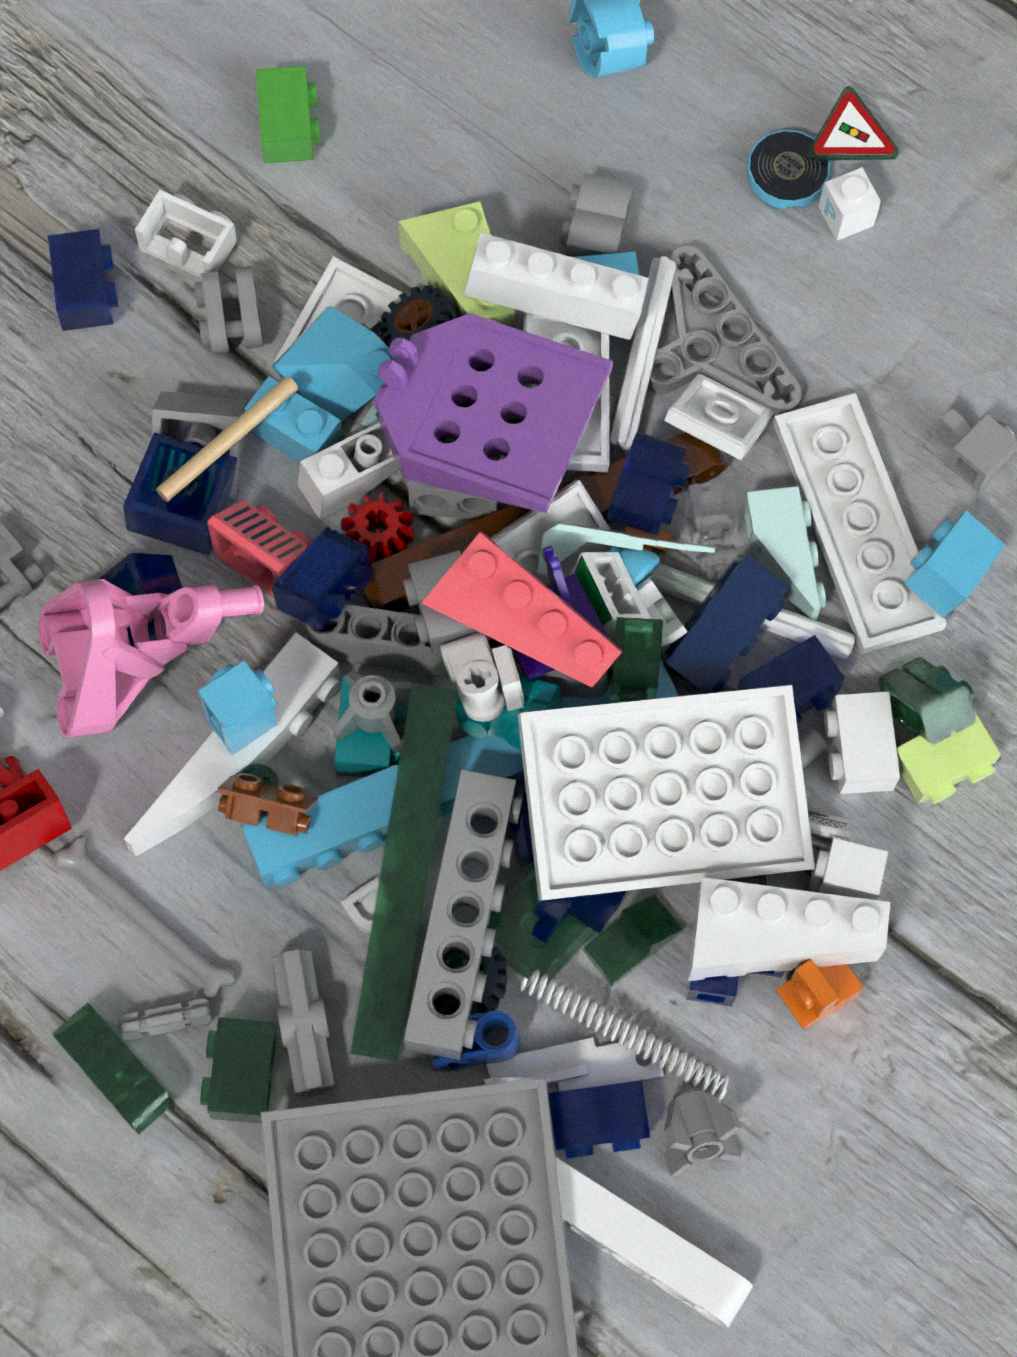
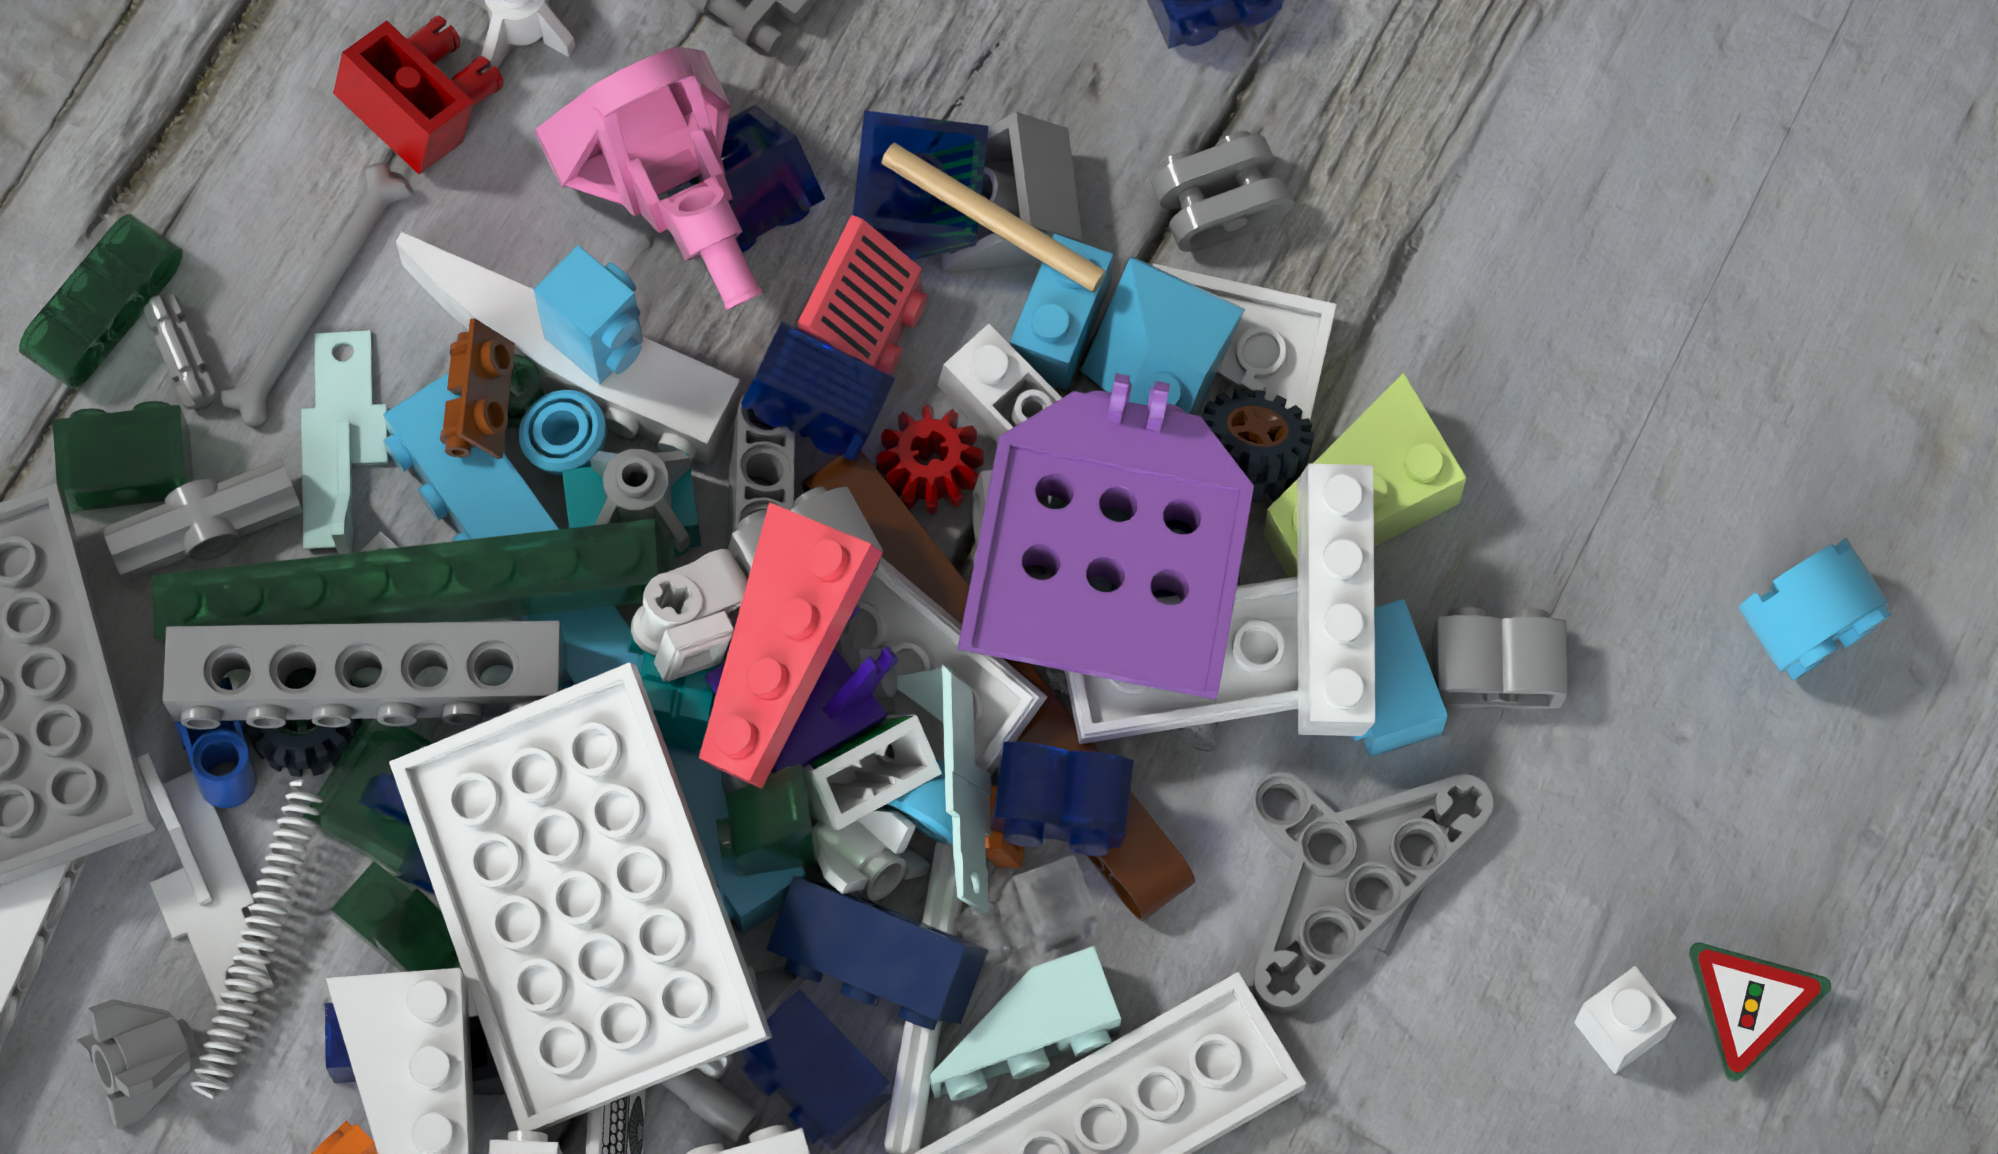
camera: 80 degrees right, 0 degrees up
(184, 214) = (1334, 60): white window -> none
(258, 923) = (336, 436): none -> light aqua piece
(285, 114) = (1555, 192): bright green brick -> none
(303, 757) = (562, 431): none -> medium azure brick
(599, 1117) = (134, 923): clear blue brick -> none
(642, 354) = (1295, 764): white axle -> none
(719, 416) = (1214, 890): white tile -> none
(783, 173) = (1662, 914): black tile -> none

